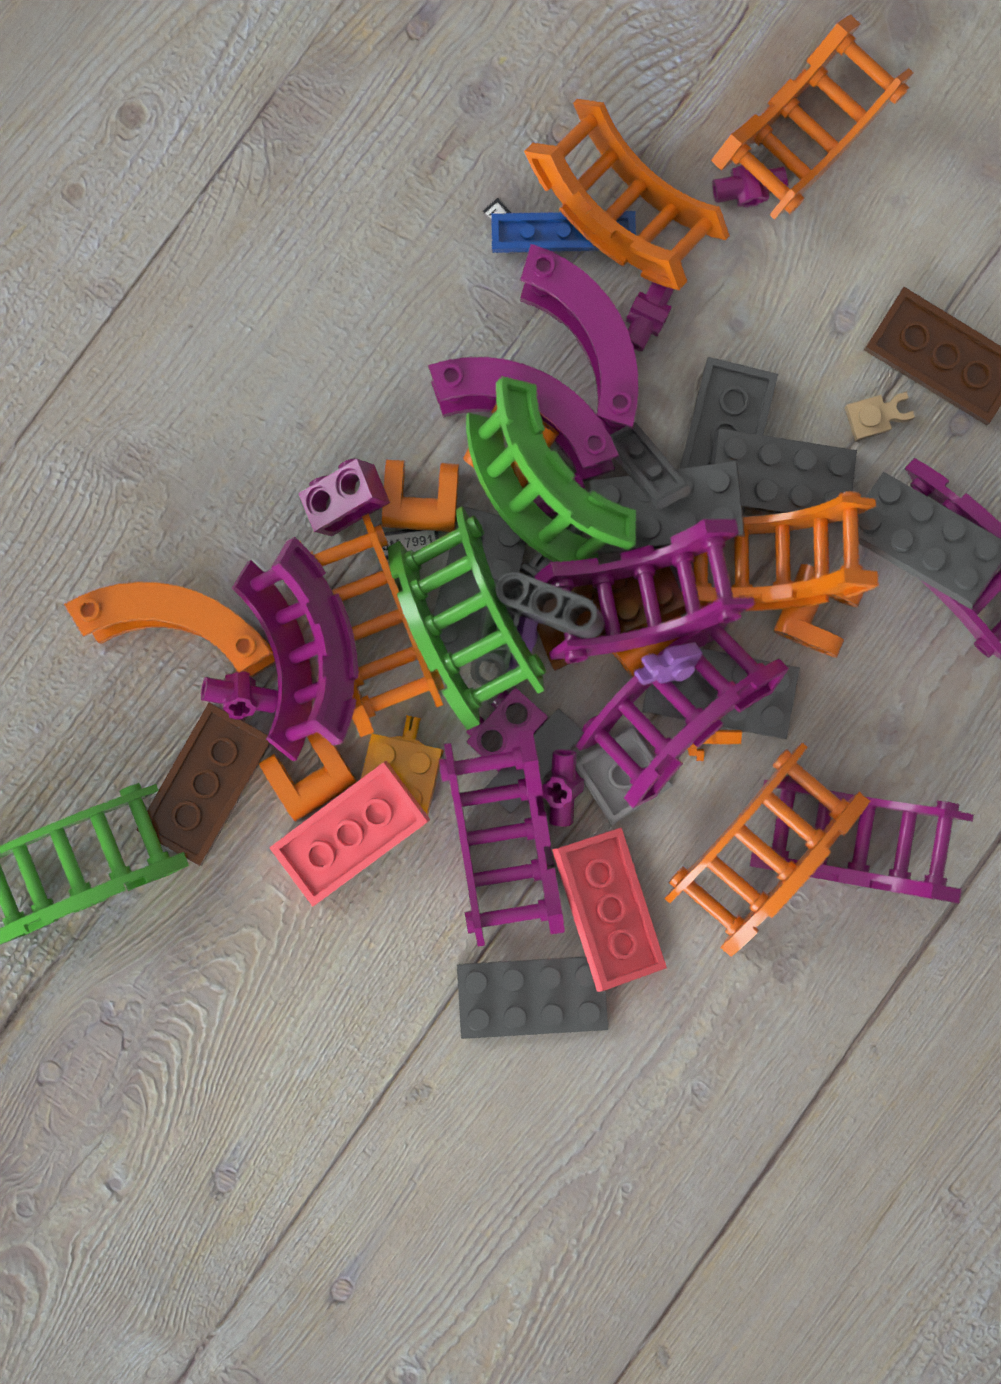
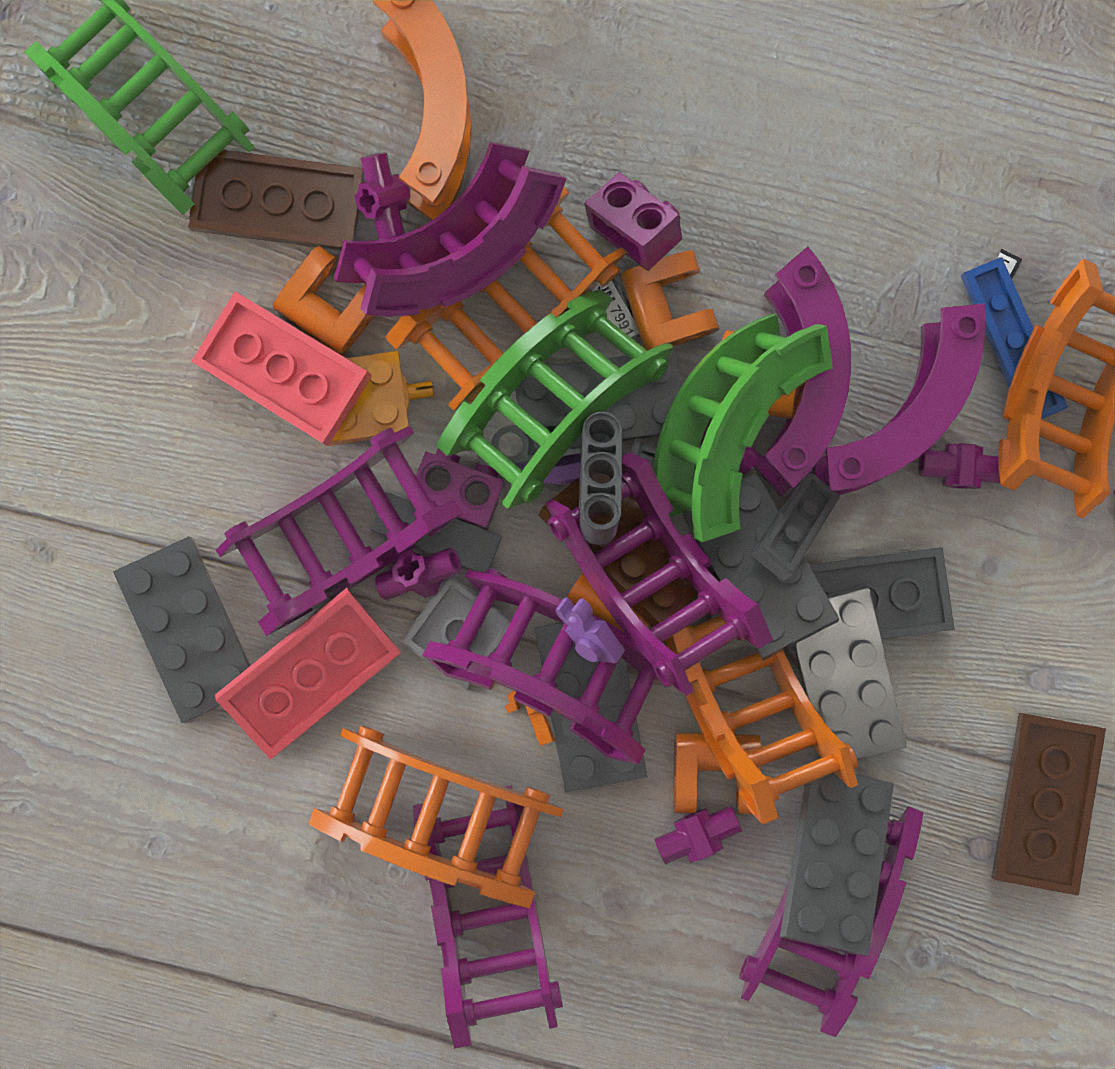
camera: 60 degrees right, 0 degrees up
(862, 645) = (698, 835): none -> magenta axle
(873, 416) = (951, 751): tan plate -> none

